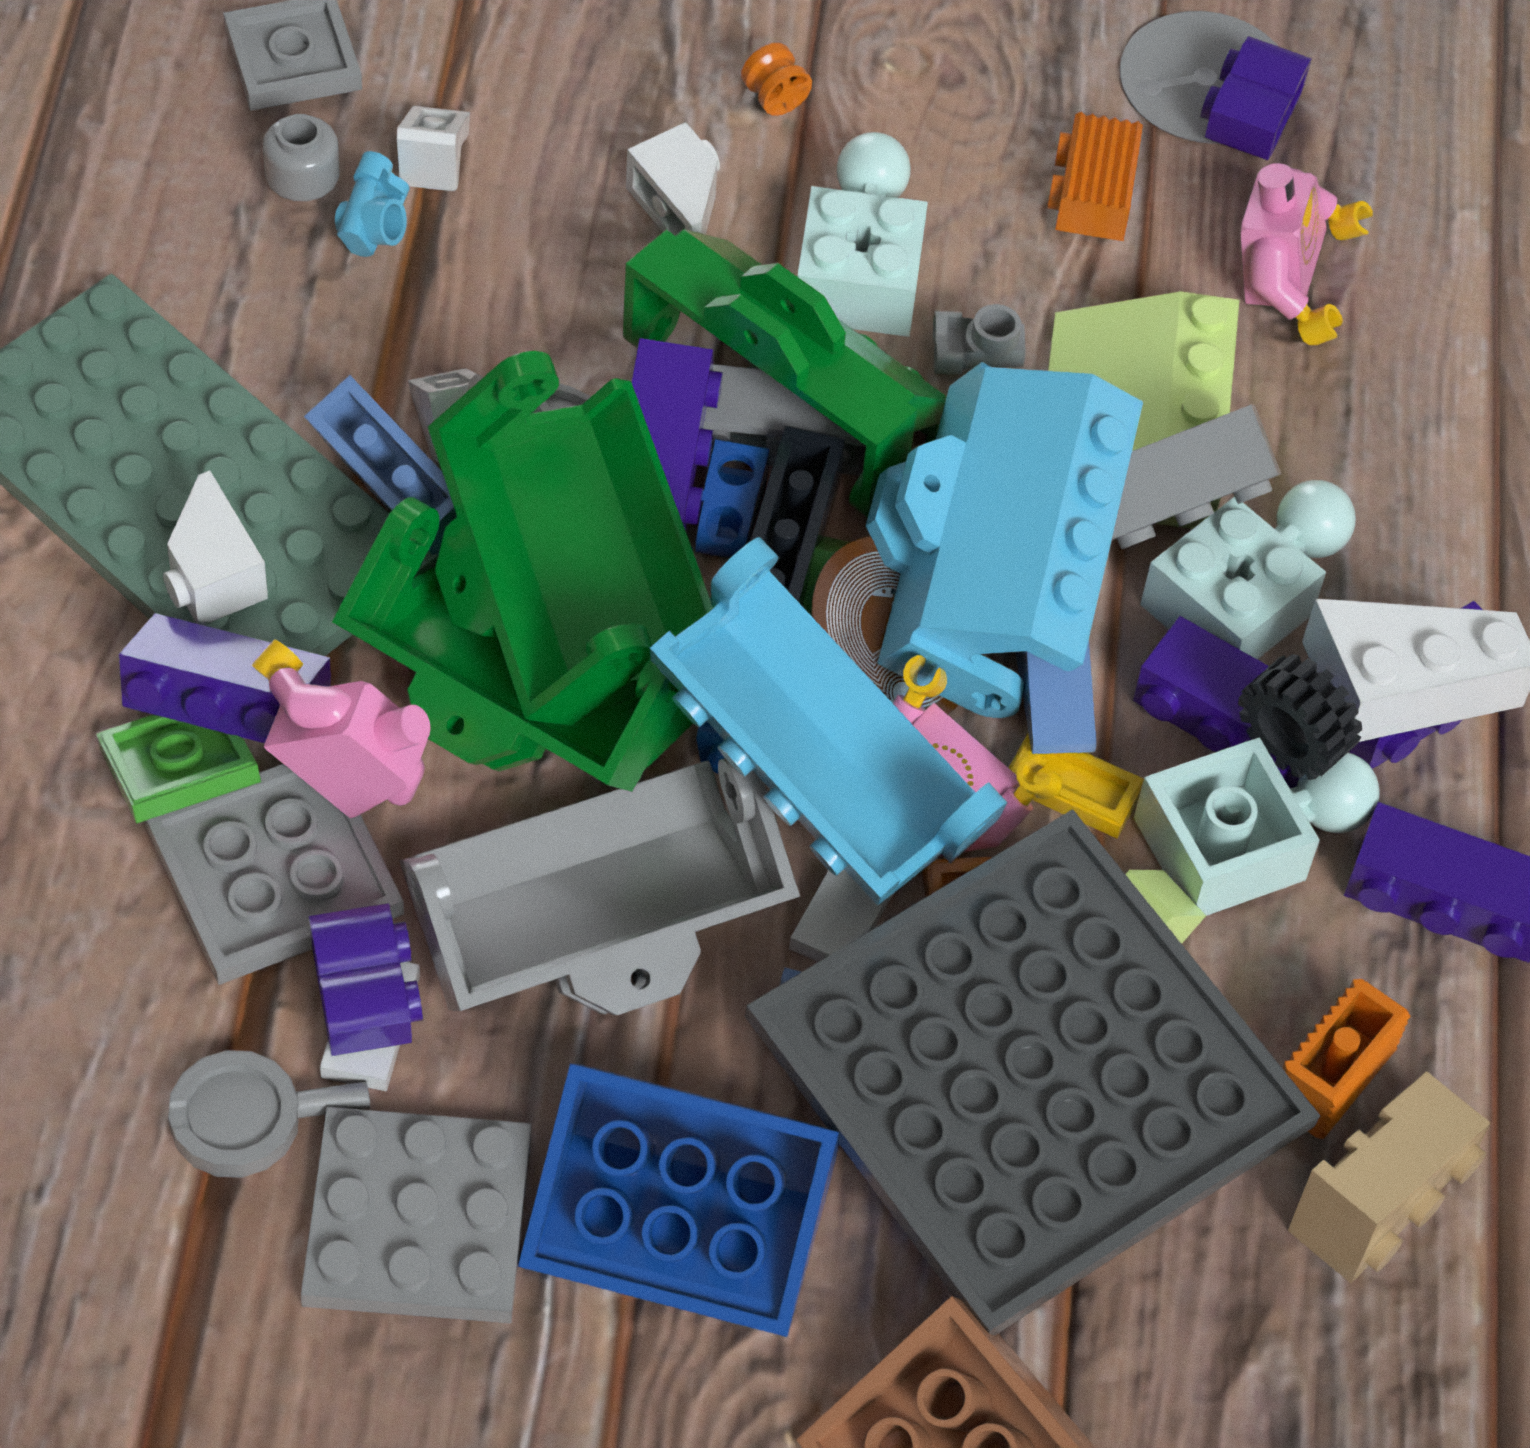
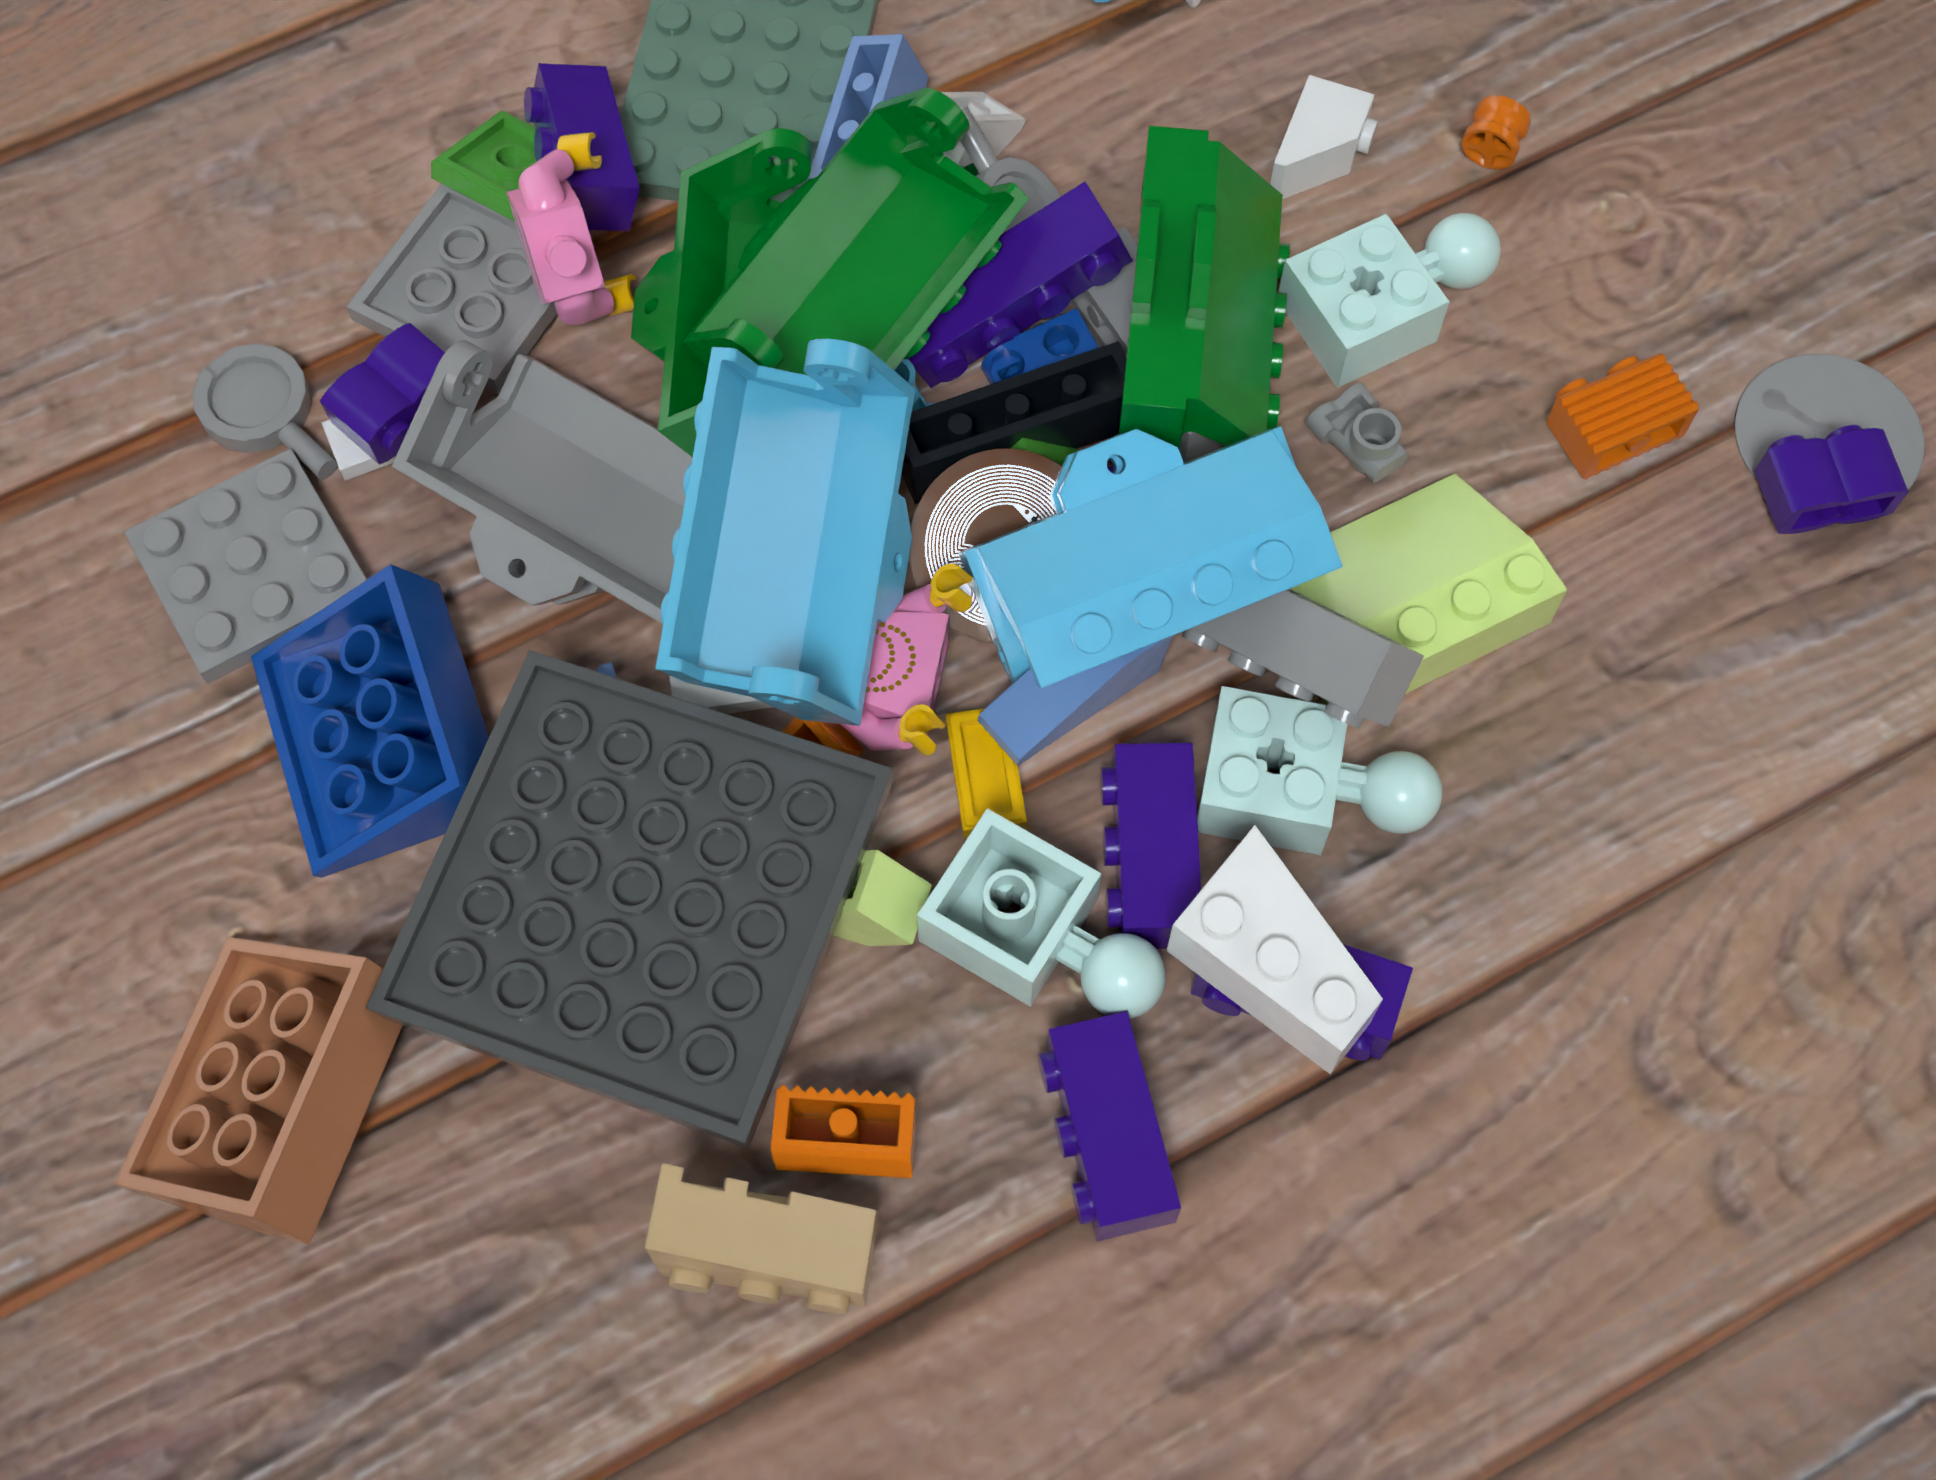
camera: 60 degrees right, 10 degrees up
(212, 557) = (684, 63): white slope -> none
(1283, 242) = (1684, 588): bright pink torso -> none
(1300, 716) = (1129, 888): black tyre -> none

